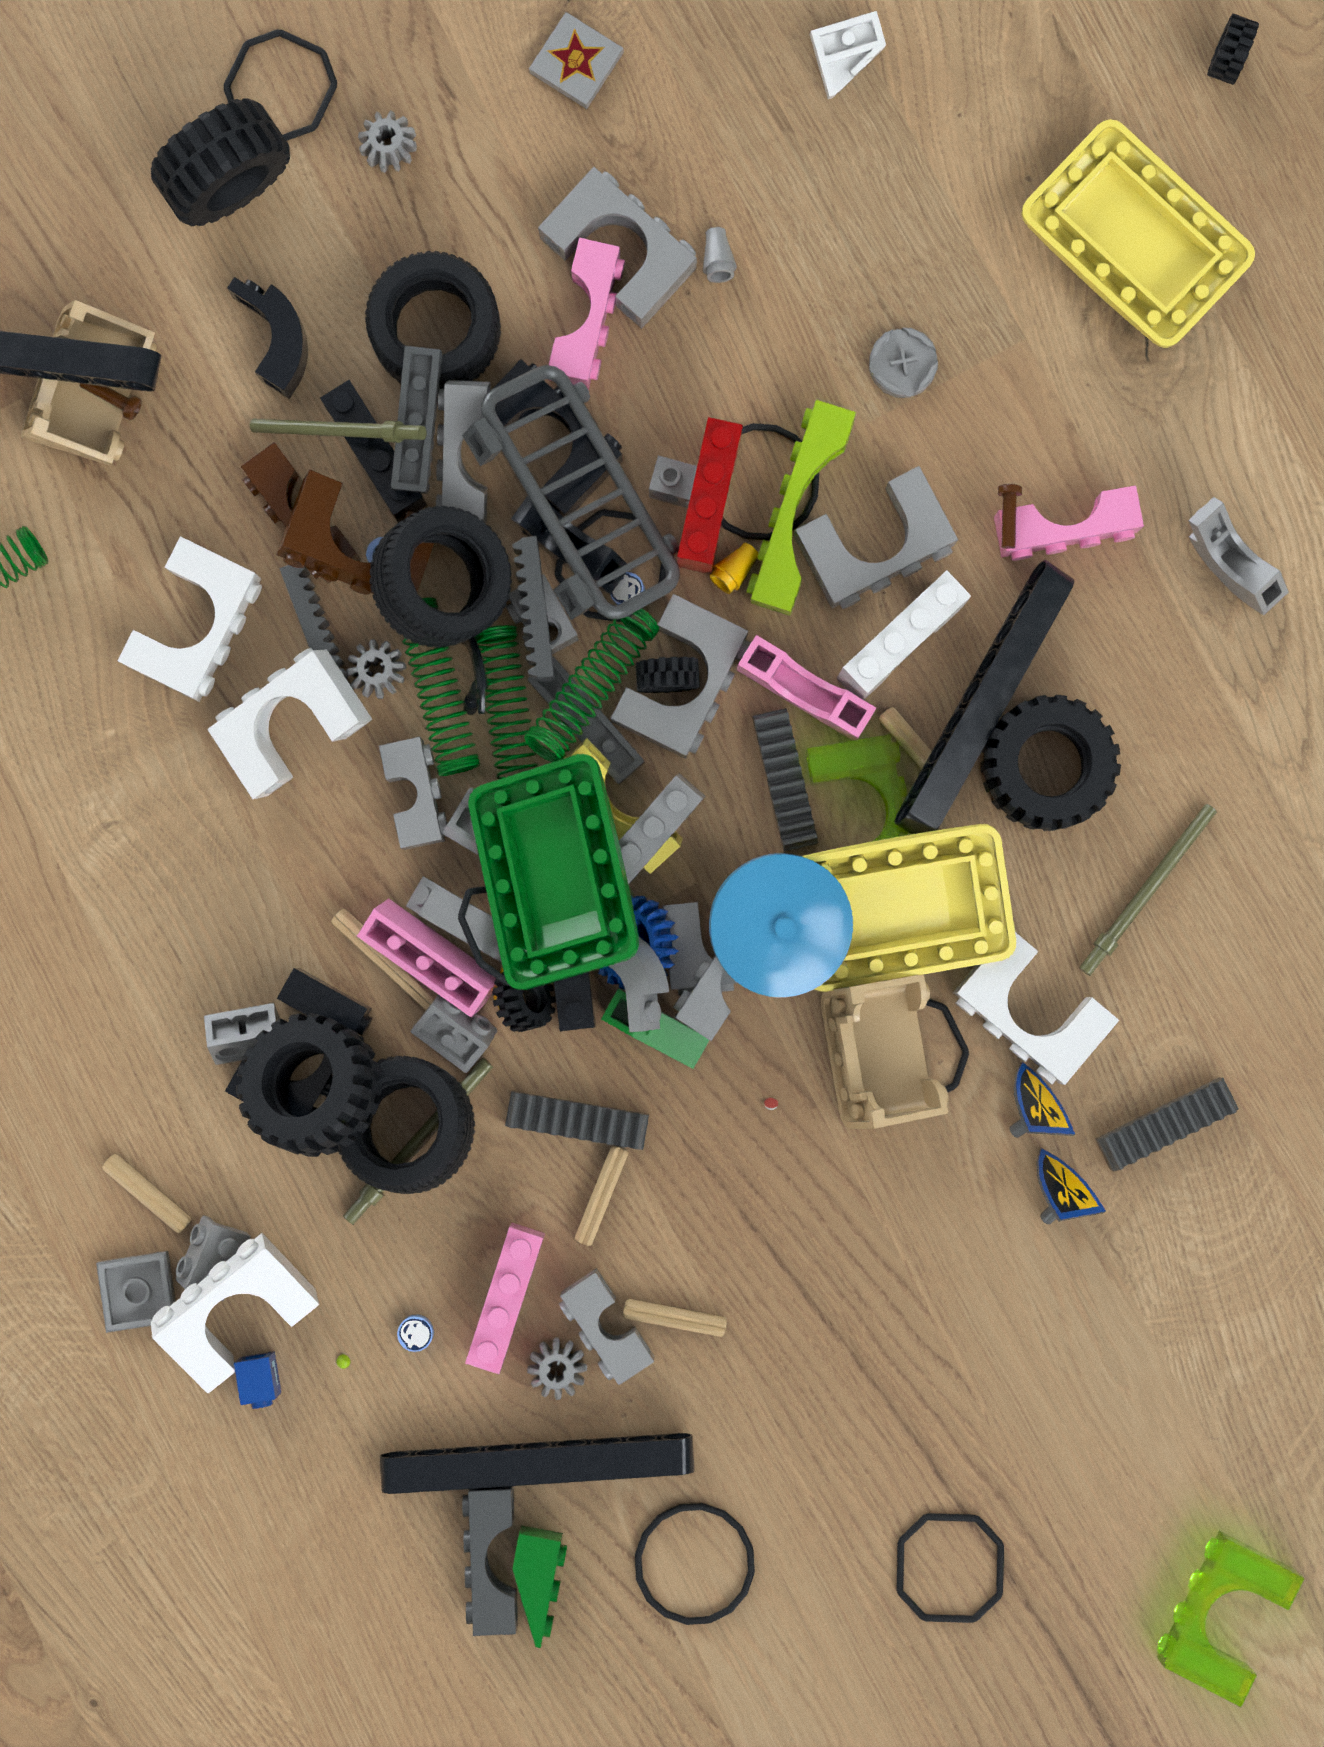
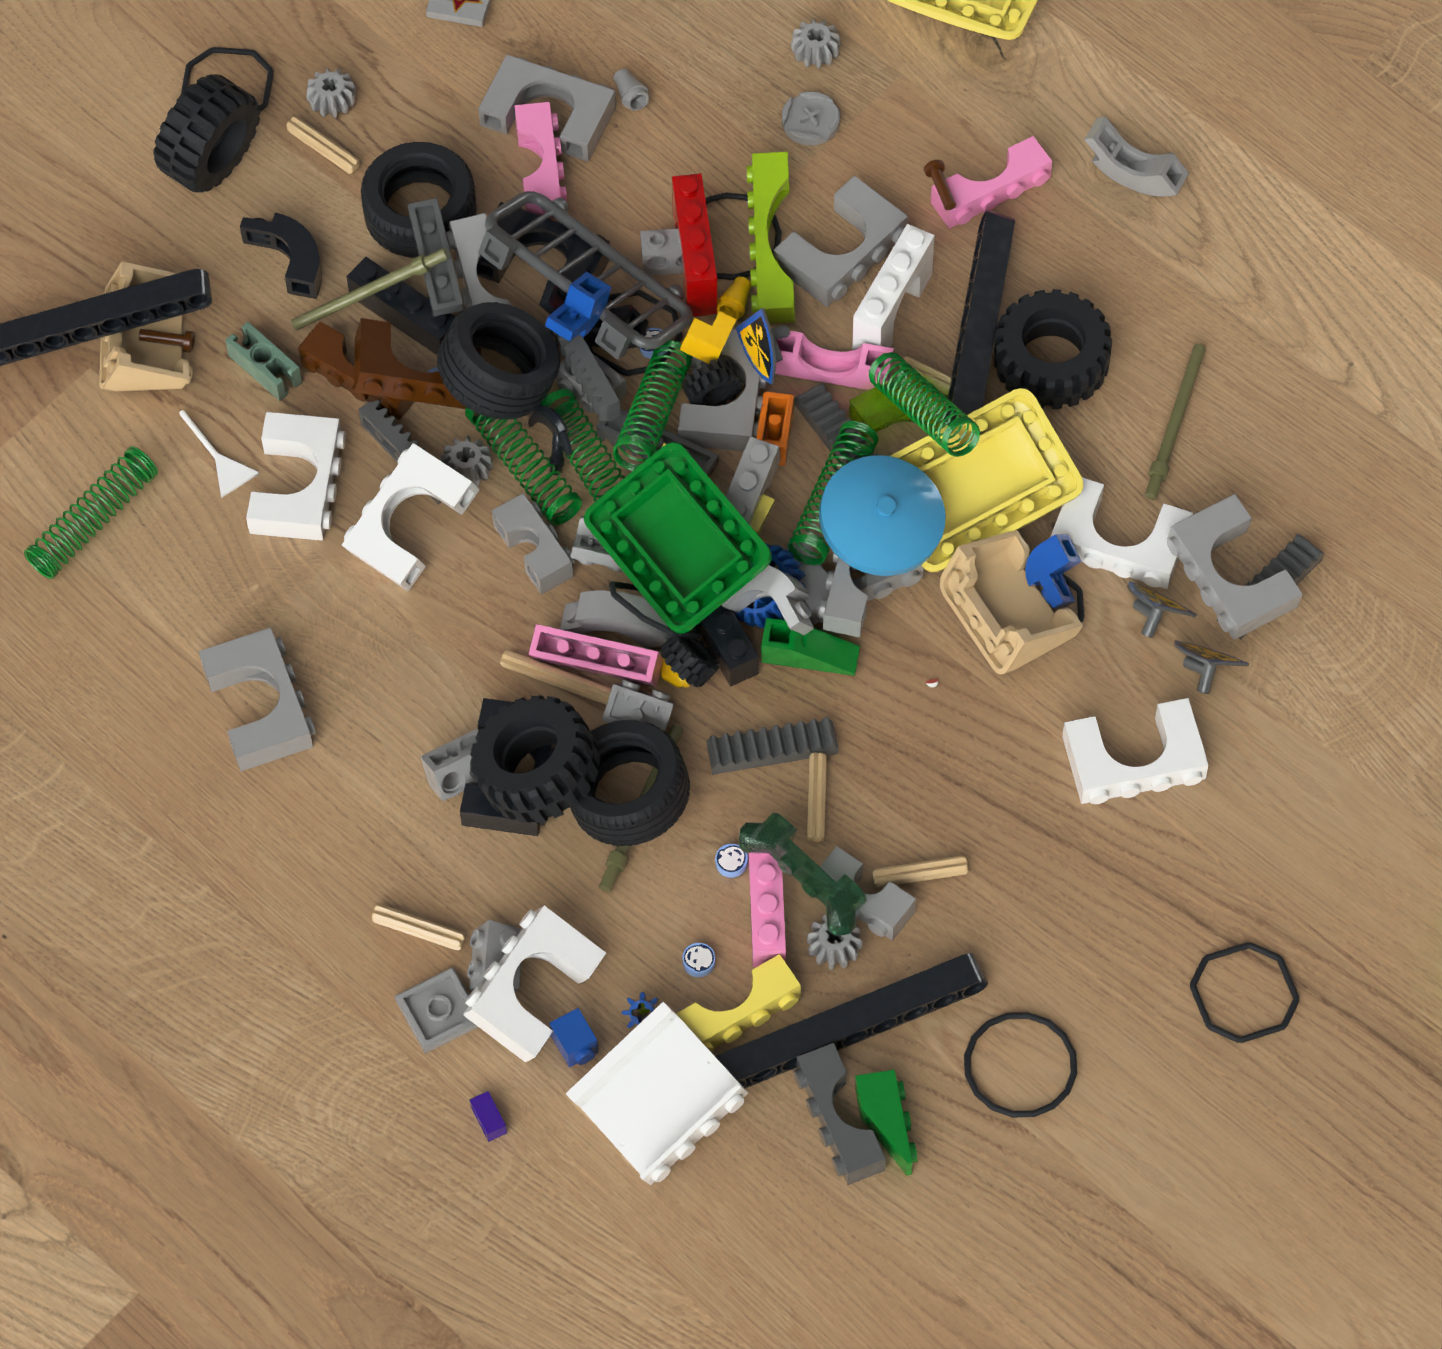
camera: 20 degrees left, 25 degrees down
(88, 917) = (260, 659): none -> light grey arch
(127, 584) = (229, 472): none -> white piece
(145, 1428) = (488, 1116): none -> dark purple piece
(190, 458) = (261, 350): none -> sand green piece
(320, 1480) = (658, 1094): none -> white panel
(335, 1378) = (636, 1005): none -> blue gear
(358, 205) = (323, 145): none -> tan axle
(386, 1415) = (772, 989): none -> light yellow arch
(488, 1234) = (731, 861): none -> tile
(544, 555) = (581, 308): none -> blue brick
(574, 1343) = (839, 897): none -> clear green plate
(683, 632) = (707, 341): none -> yellow piece
(715, 751) = (776, 421): none -> orange brick
(735, 657) = (761, 344): none -> shield
(797, 806) = (813, 539): none -> green piece
(897, 872) = (892, 385): none -> green piece
(941, 1029) = (1047, 565): none -> blue brick
(950, 260) = (815, 43): none -> light grey gear
(988, 1296) = (1103, 778): none -> white arch
(1105, 1067) = (1237, 607): none -> light grey arch

